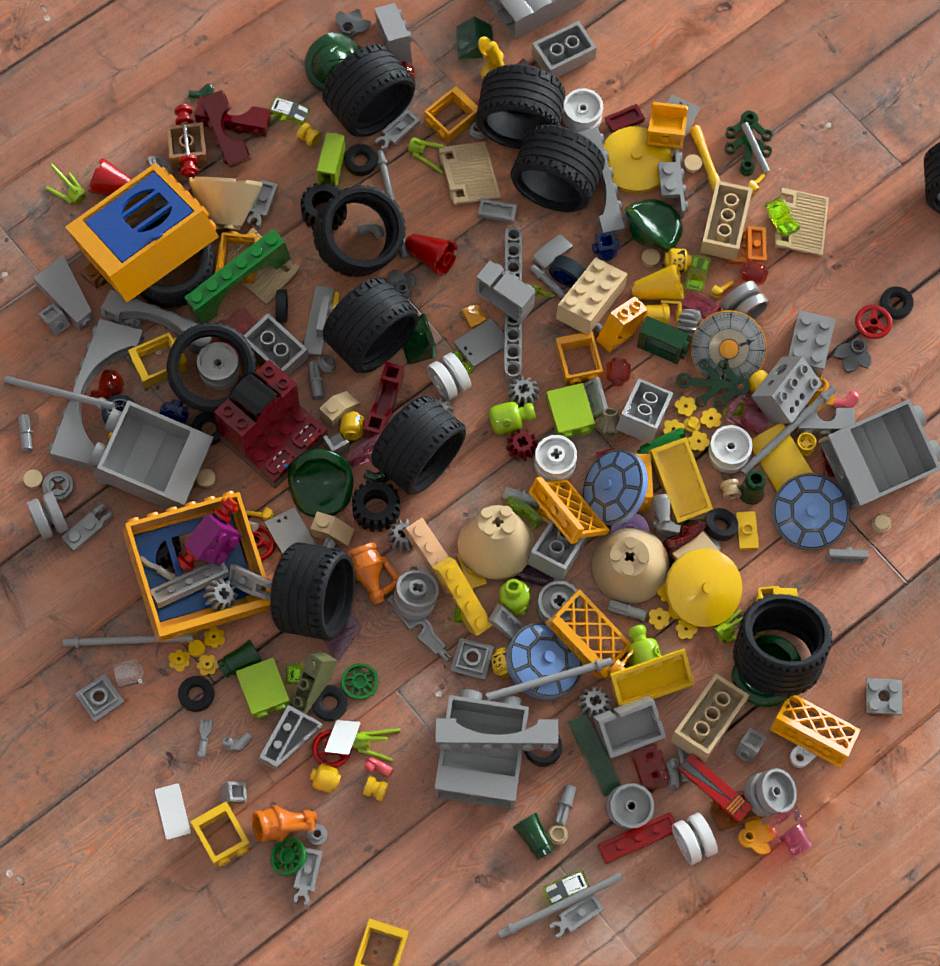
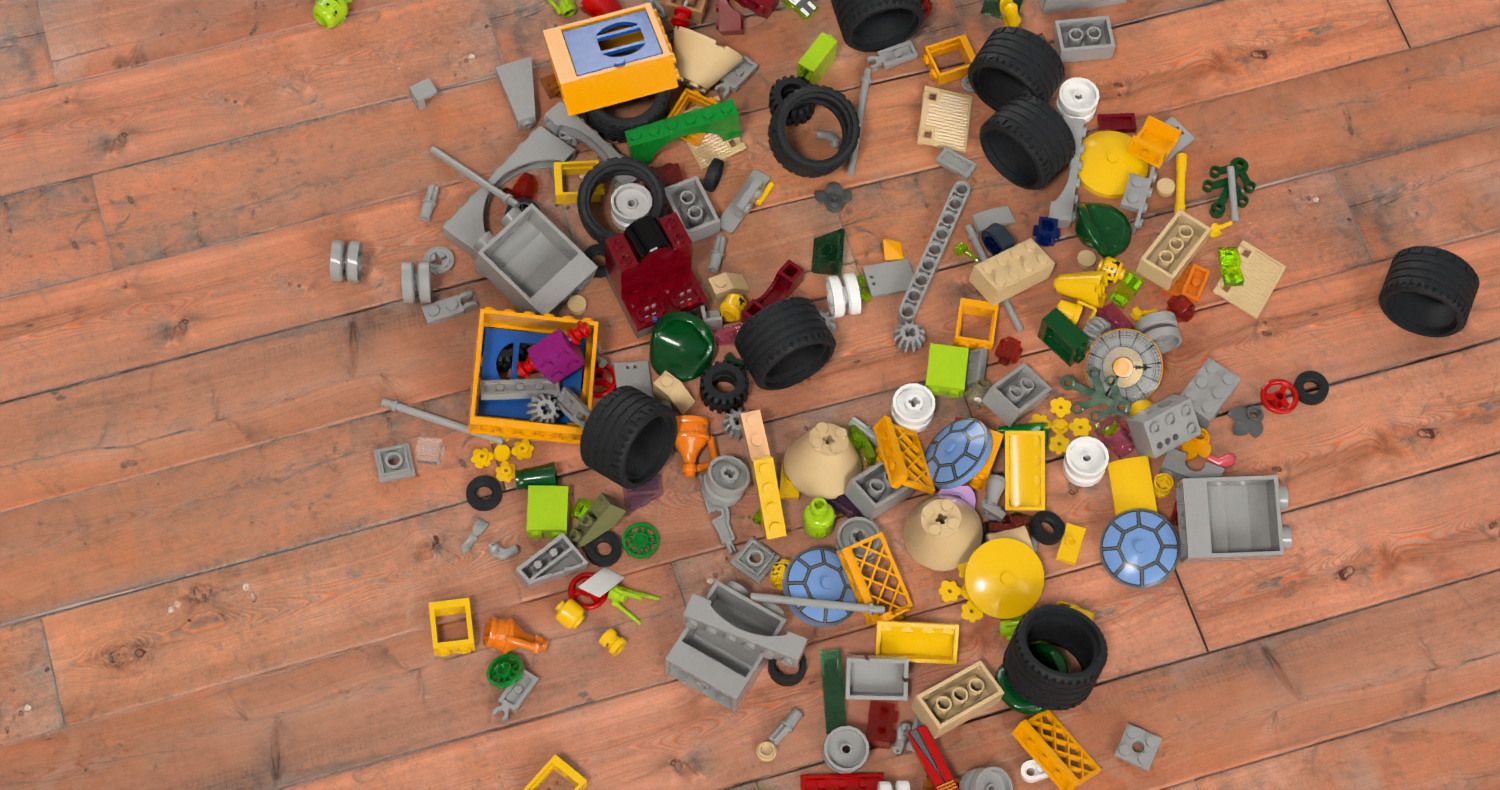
camera: 20 degrees right, 5 degrees down
(33, 479) = (418, 246): tan piece -> none
(54, 319) = (499, 112): light grey bracket -> none
(159, 569) = (496, 366): light grey piece -> none
(172, 811) = (417, 590): white sticker -> none
(175, 411) = (574, 232): clear blue brick -> none
(234, 792) = (481, 595): light grey slope -> none
(265, 515) = (619, 357): yellow hand -> none
(309, 135) = (806, 30): yellow wheel -> none
(320, 840) = (541, 667): light grey plate -> none
(326, 363) = (734, 243): light grey plate -> none
(360, 149) = (846, 81): black tyre -> none
(370, 325) = (787, 219): black tyre -> none
(372, 763) = (625, 623): coral arm -> none
(419, 146) = (907, 78): lime plant -> none
(432, 252) = (878, 178): red cone -> none
(505, 291) = (929, 235): light grey piece -> none
(505, 621) = (799, 535): light grey plate -> none
(508, 417) = (885, 354): lime piece -> none
(521, 438) = (881, 379): dark red gear -> none
(534, 836) = (743, 742): dark green plant -> none
(589, 697) = (852, 638): light grey gear -> none
(622, 323) = (1030, 305): light orange window -> none
(627, 610) = (922, 573): light grey axle -> none
(644, 648) = (921, 609): lime piece -> none
(730, 489) = (1070, 499): tan wheel -> none
(750, 745) = (986, 742): light grey bracket -> none
(753, 488) = (1092, 506): dark green plant -> none
(823, 397) = (1196, 446): light grey bar -> none
(847, 555) = (1158, 603): light grey plate -> none
(881, 523) = (1206, 587): tan piece -> none

